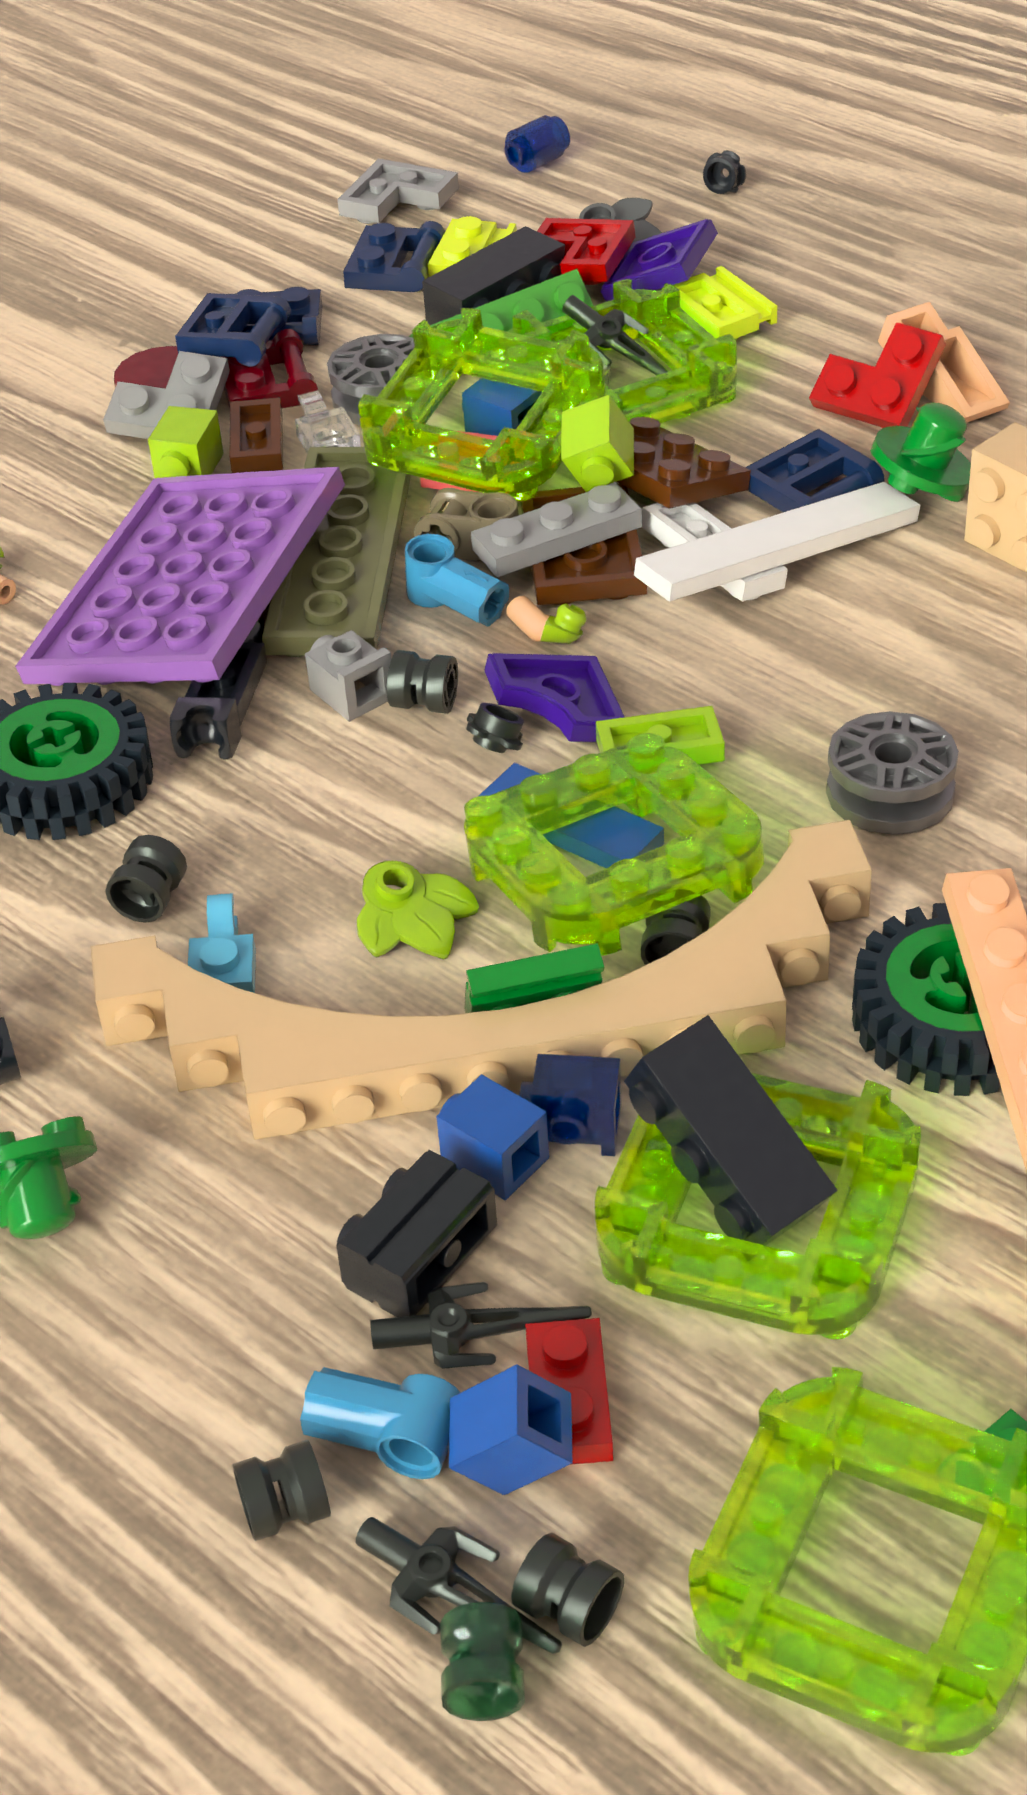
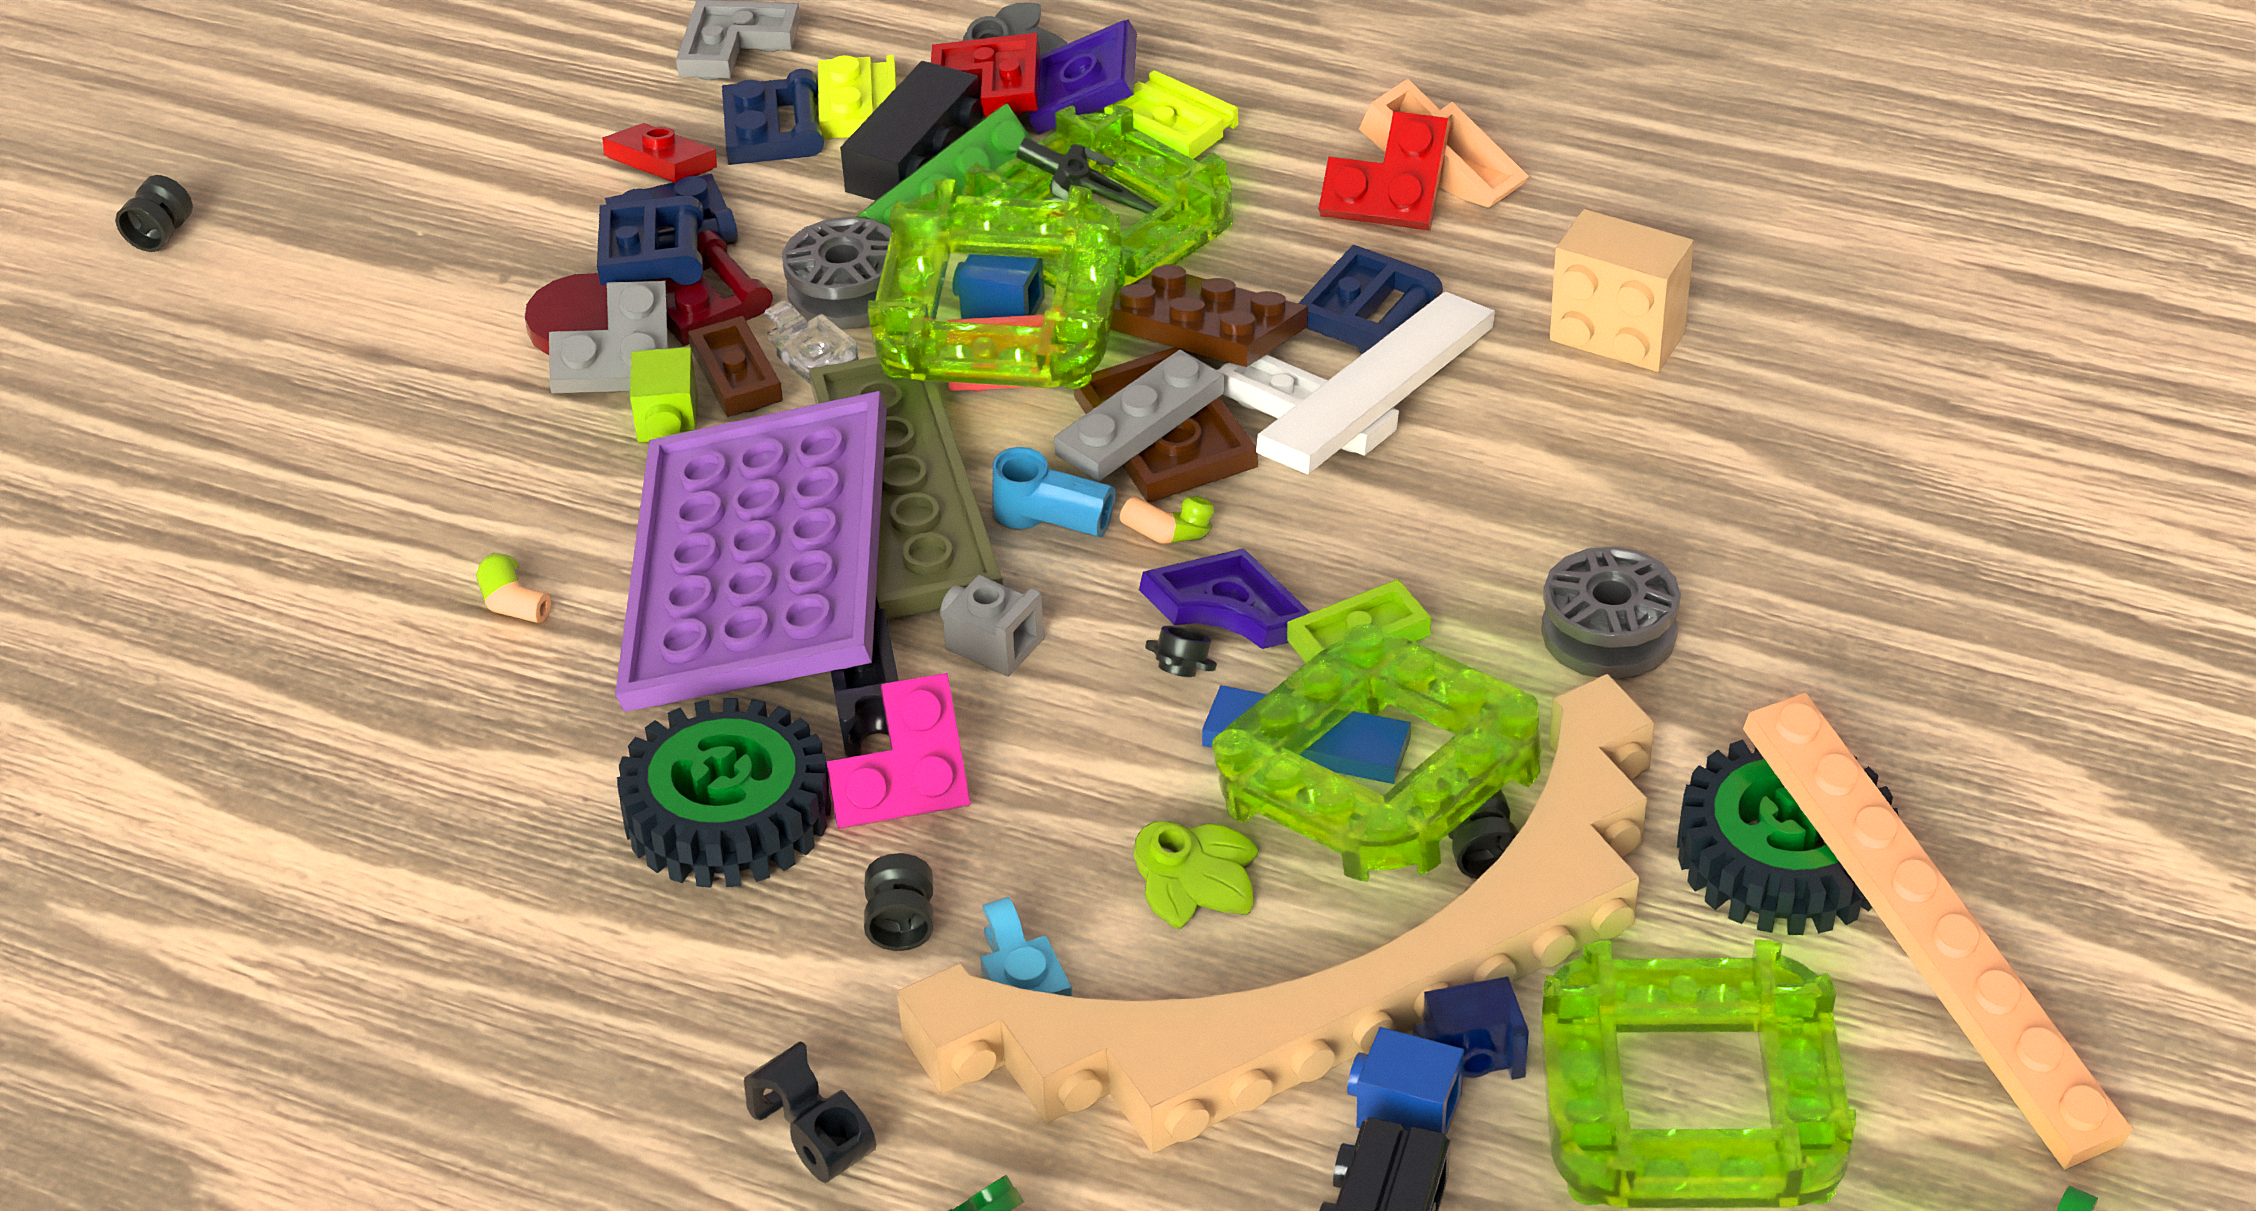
camera: 20 degrees left, 0 degrees up
(225, 772) = (919, 772): none -> plate
(288, 266) = (659, 152): none -> red plate
(422, 681) = (1078, 616): pearl dark grey wheel -> none
(464, 514) = (1031, 419): dark tan piece -> none
(533, 979) = (1377, 920): green plate -> none
(597, 443) = (1149, 310): lime brick -> none
(728, 1134) = (1657, 1027): black brick -> none
(926, 453) = (1481, 252): green plate -> none

